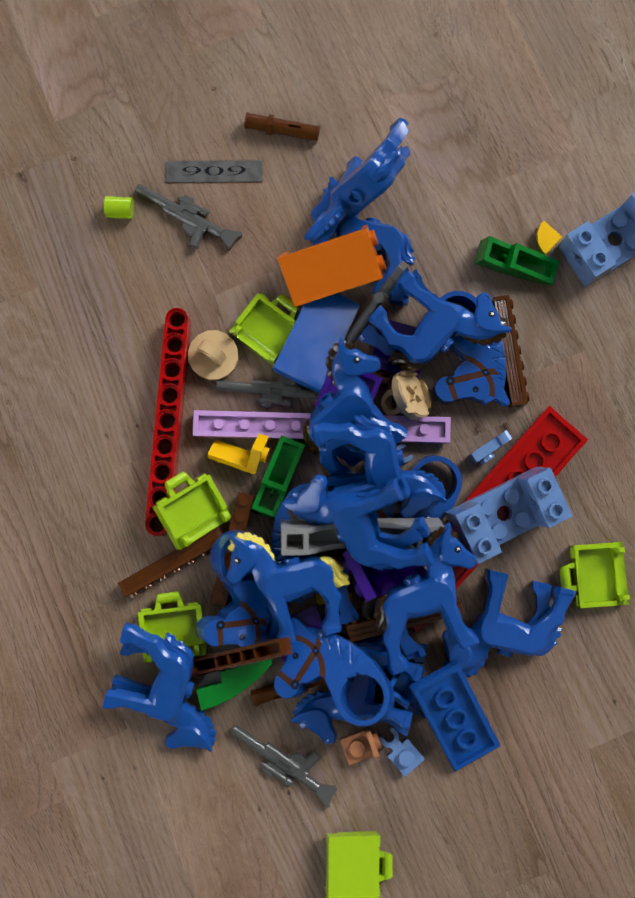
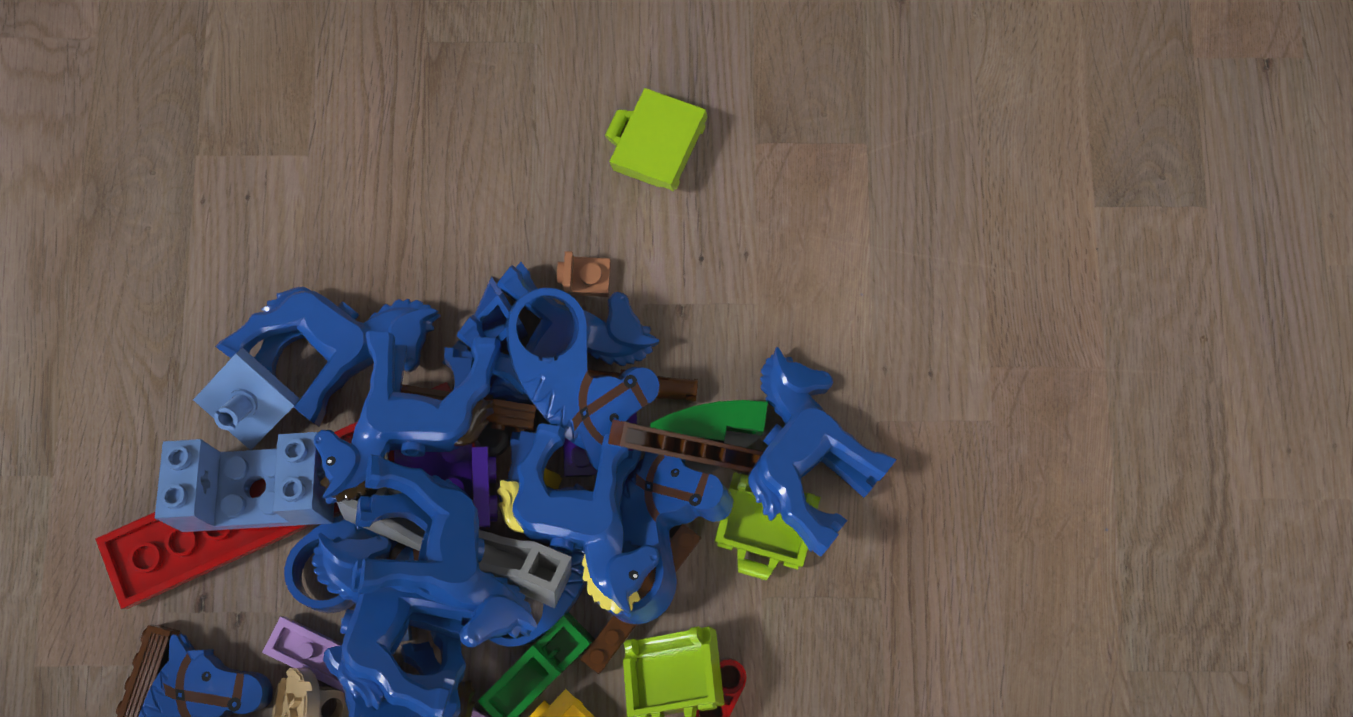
camera: 155 degrees left, 5 degrees down
(168, 564) = (735, 615): reddish brown piece -> none
(280, 764) = (695, 296): dark grey piece -> none
(403, 753) = (536, 245): medium blue plate -> none
(455, 715) = (447, 261): blue tile -> none
(485, 453) = (241, 581): medium blue plate -> none
(539, 565) = (246, 399): none -> medium blue tile
(597, 575) = (179, 356): lime piece -> none

